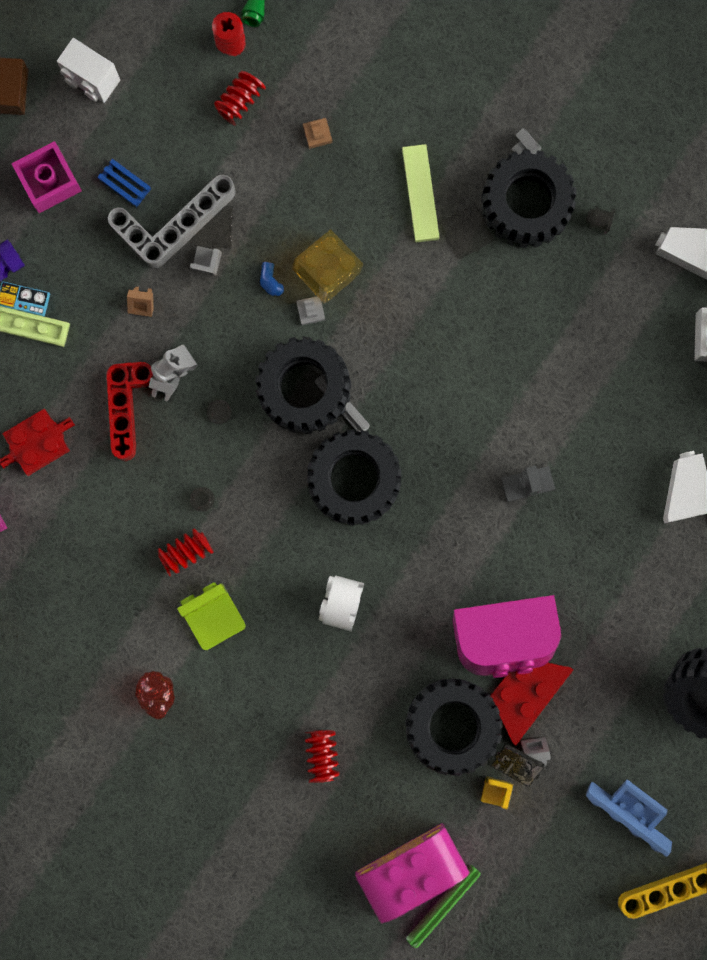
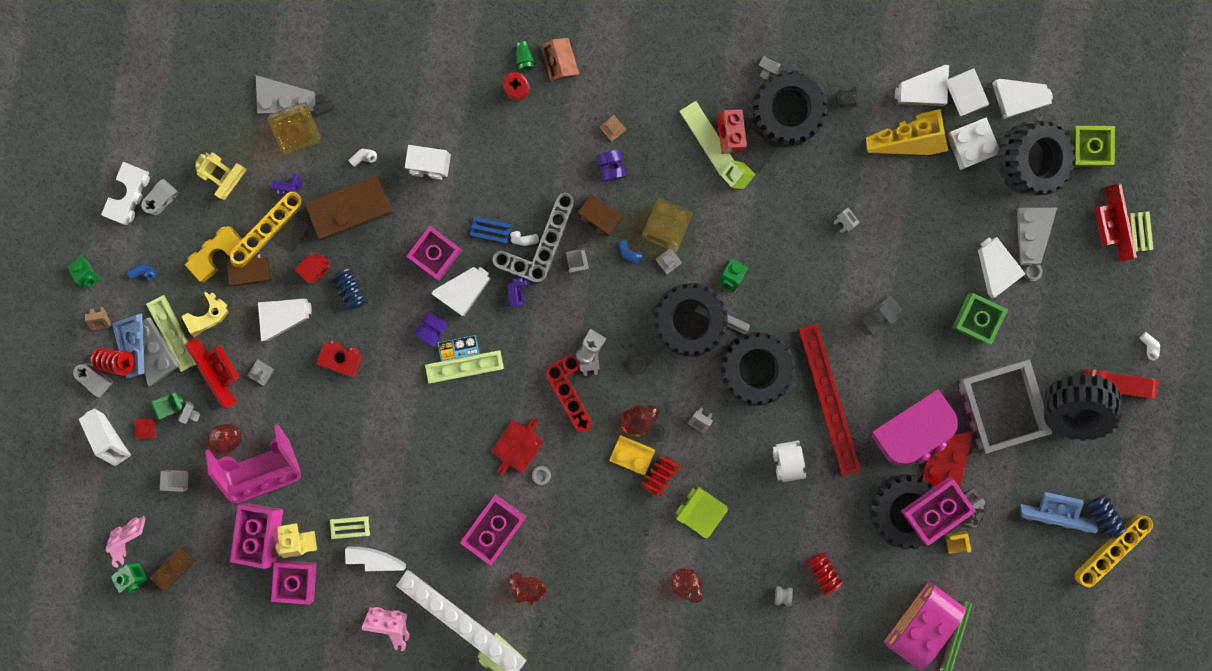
camera: 20 degrees left, 5 degrees up
(21, 35) = (363, 155): none -> white arm
(47, 488) = (541, 475): none -> light grey tile
(59, 234) = (463, 290): none -> white slope
(117, 264) = (515, 295): none -> dark purple bracket
(140, 302) = (544, 312): medium nougat tile -> none
(156, 211) = (525, 240): none -> white arm
(163, 513) = (632, 455): none -> yellow plate
(201, 474) = (633, 416): none -> clear red piece
(238, 96) = (543, 133): red piece -> none
(255, 221) = (600, 215): none -> reddish brown brick
(260, 510) = (700, 421): none -> light grey tile
(261, 761) = (783, 596): none -> light grey wheel
(293, 28) = (559, 59): none -> panel
(295, 170) = (608, 159): none -> dark purple wheel
(376, 360) = (732, 275): none -> green bracket
(422, 554) = (829, 399): none -> red plate
(435, 248) = (737, 174): none -> lime panel
(450, 195) = (731, 131): none -> red brick
(488, 738) = (938, 511): none -> dark pink brick
(538, 355) = (847, 219): none -> light grey tile
(640, 539) = (979, 318): none -> bright green brick
(664, 663) = (1034, 396): none -> light grey window
(665, 301) = (918, 137): none -> yellow wedge
(686, 842) = (1108, 517): none -> dark blue piece

